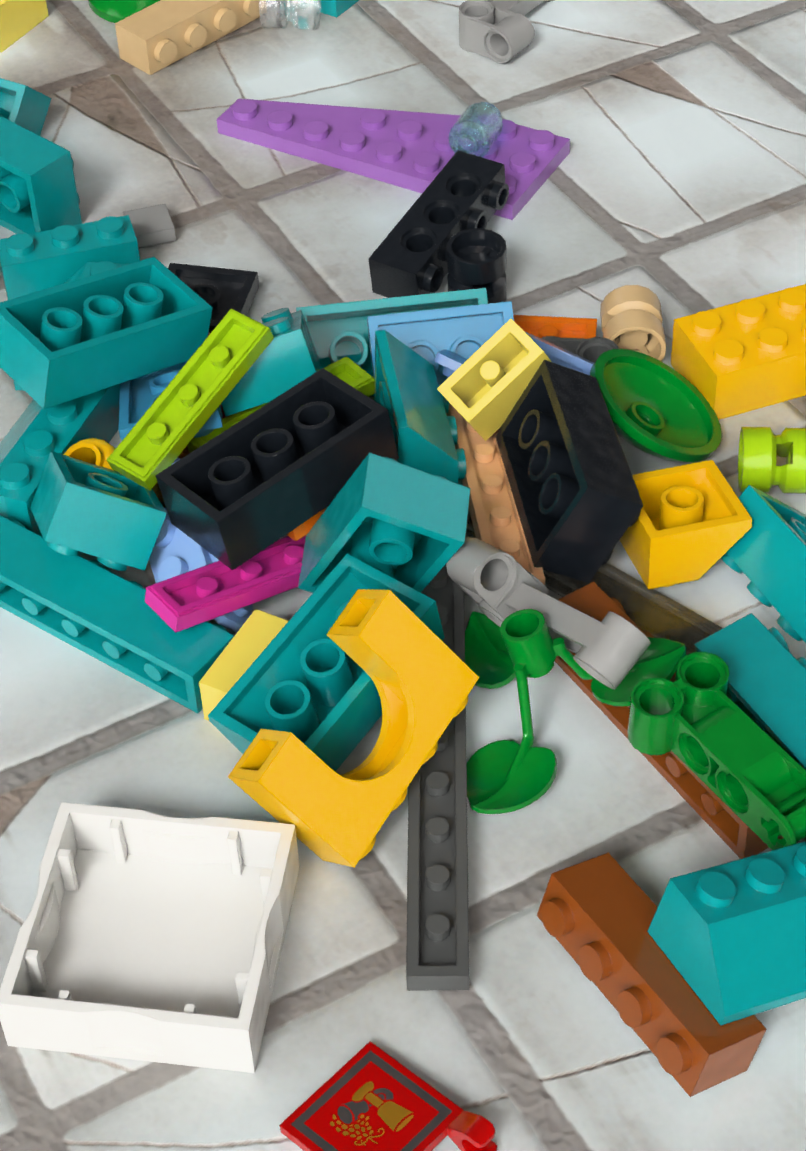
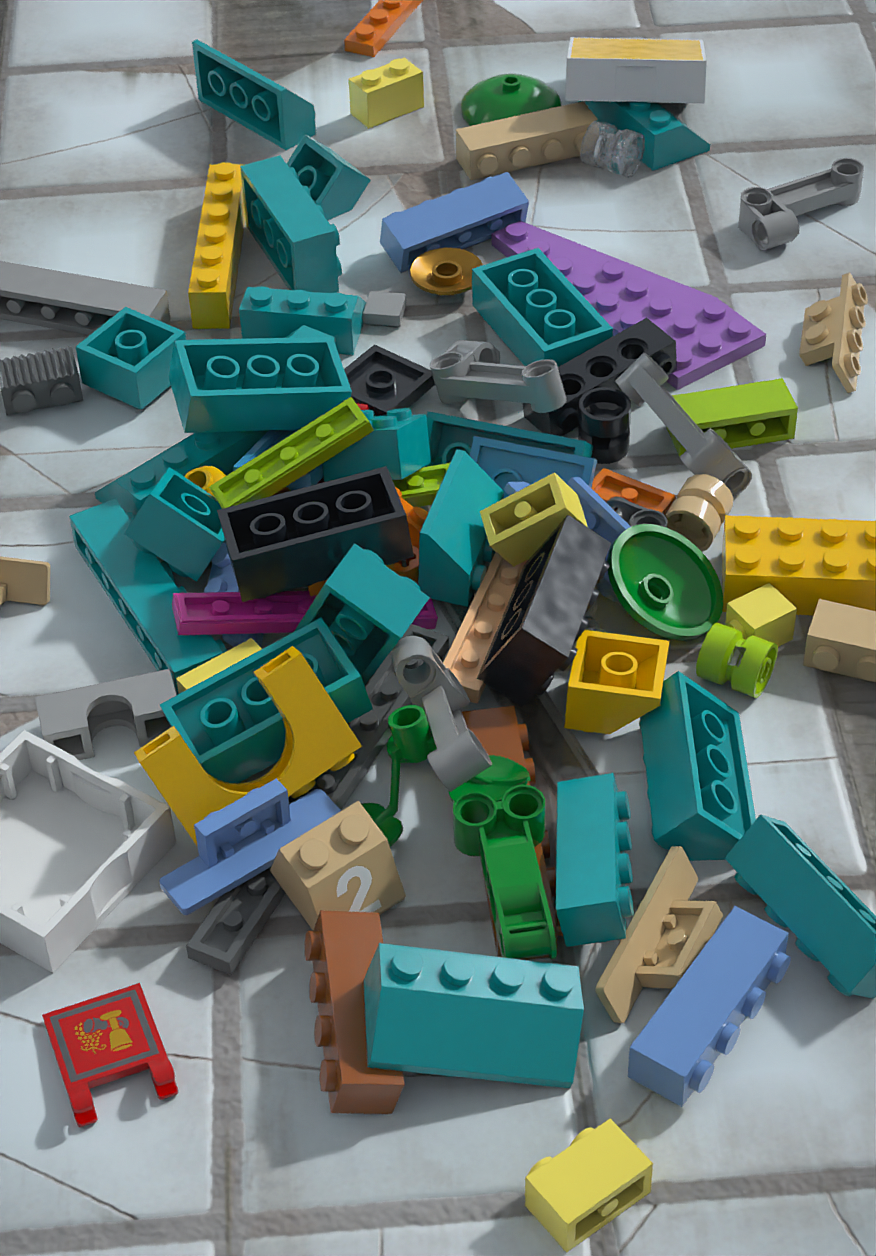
camera: 25 degrees right, 0 degrees up
(162, 727) = (76, 715): none -> light grey arch
(170, 117) = (453, 220): none -> medium blue brick
(197, 168) = (444, 271): none -> pearl gold dish
(294, 260) = (475, 372): none -> light grey piece
(331, 181) = (536, 309): none -> teal brick
(410, 834) = (243, 842): none -> medium blue bracket
(476, 129) = (680, 304): clear light blue brick -> none
(527, 824) = (340, 867): none -> tan slope
(594, 227) = (742, 413): none -> lime brick
(608, 264) = (705, 451): none -> light grey piece
(630, 117) = (835, 331): none -> tan bracket
(769, 404) = (763, 615): none -> light yellow brick

